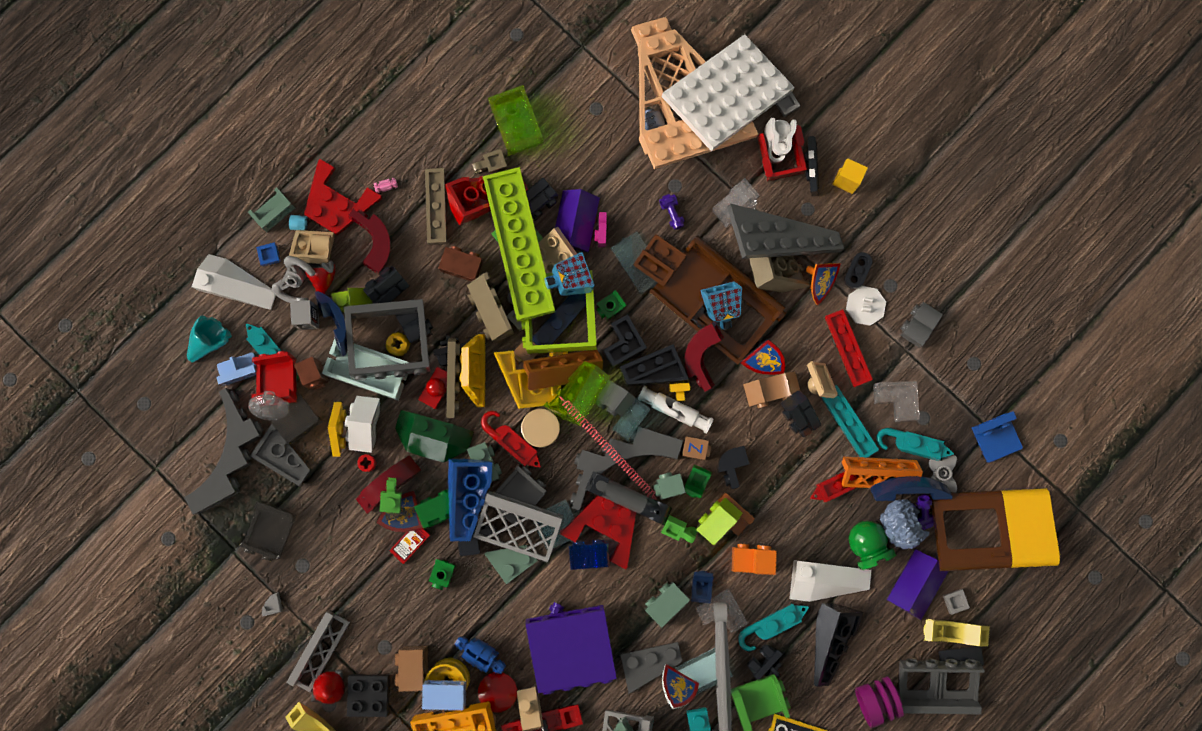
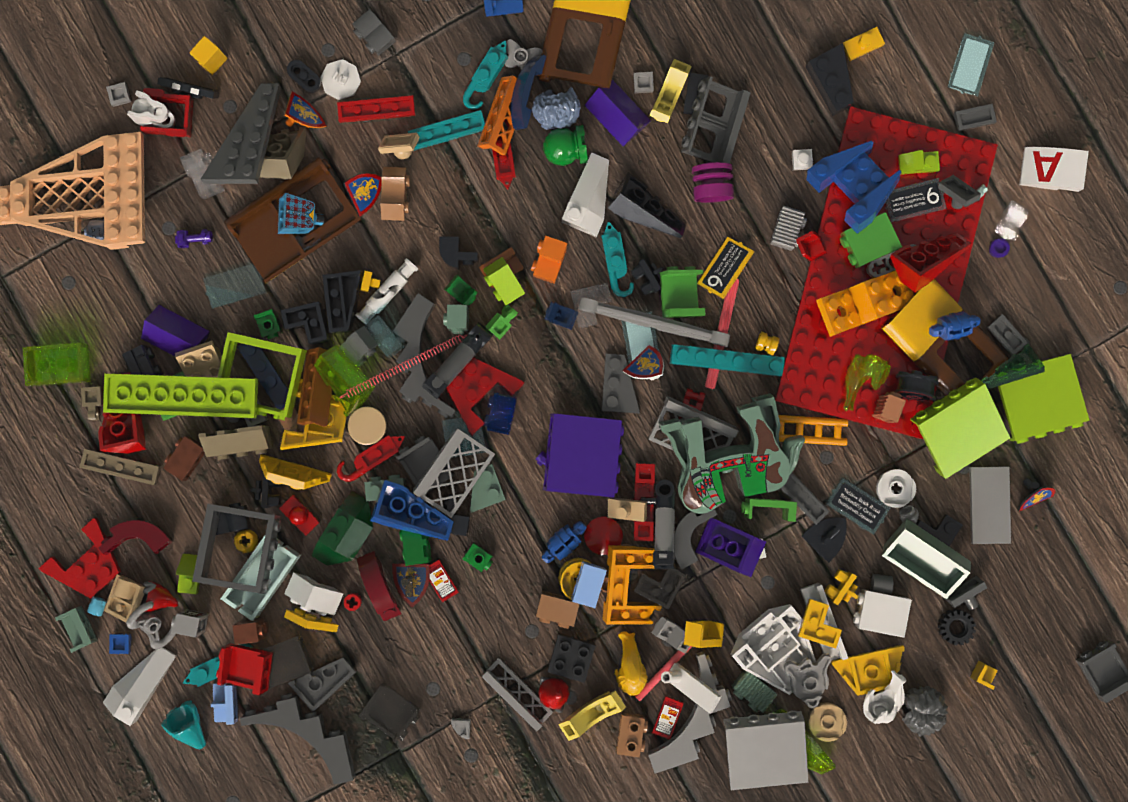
camera: 80 degrees left, 5 degrees up
(268, 406) = (269, 680): clear dish -> none
(329, 308) = (191, 597): dark blue slope -> none
(385, 185) = (84, 510): bright pink piece -> none
(386, 286) = (185, 536): black brick -> none
(390, 500) = (392, 586): bright green plate -> none
(452, 370) = (285, 493): dark tan plate -> none
(571, 276) = (227, 353): torso -> none
(600, 235) = (196, 314): dark pink plate -> none
(660, 260) = (237, 264): reddish brown slope -> none
(666, 603) = (567, 353): sand green brick -> none
(695, 354) = (336, 255): dark red arch -> none
(695, 448) = (429, 283): medium nougat brick -> none
(727, 92) = (89, 148): white plate -> none
(800, 414) = (425, 173): black brick -> none
(904, 397) = (438, 71): clear brick -> none
(926, 519) = (544, 84): dark purple bar -> none

